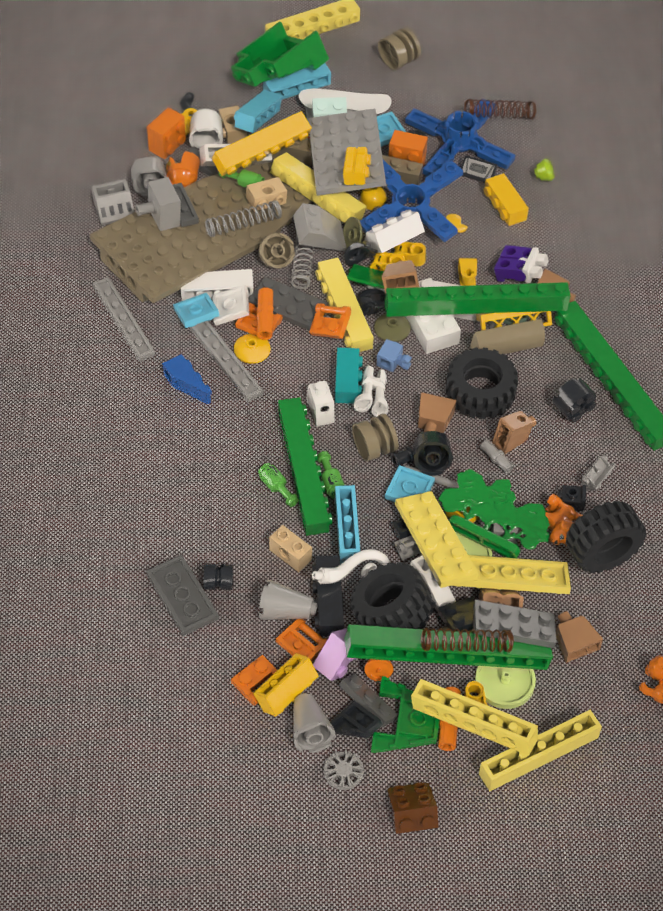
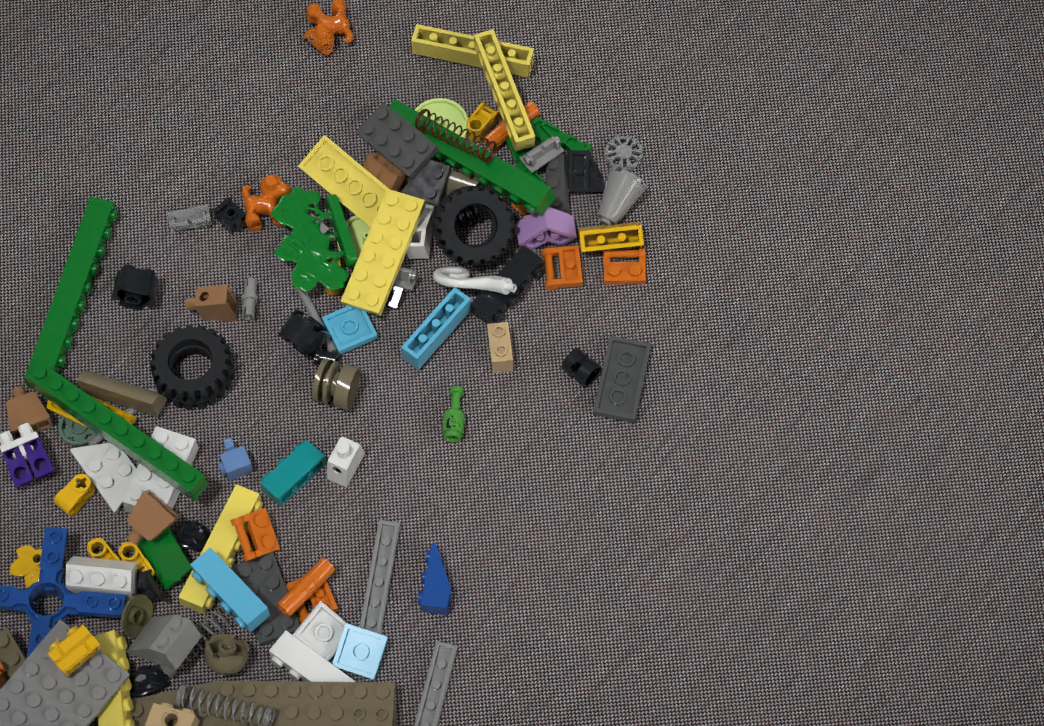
camera: 135 degrees left, 10 degrees up
(251, 349) = (351, 585): yellow dish -> none
(285, 603) = (552, 297): light grey cone -> none
(304, 467) = (415, 417): green brick -> none
(307, 273) = (229, 590): none -> medium azure brick
(331, 475) = (404, 386): bright green piece -> none
(364, 401) = (275, 449): white piece -> none
(392, 328) = (202, 507): olive dish -> none
(400, 706) = (542, 154): none -> light grey hinge
(413, 807) = (598, 89): reddish brown bracket -> none
(435, 412) = (259, 375): medium nougat torso -> none
(576, 637) = (354, 109): medium nougat torso -> none
(605, 536) = (257, 142): black tyre -> none

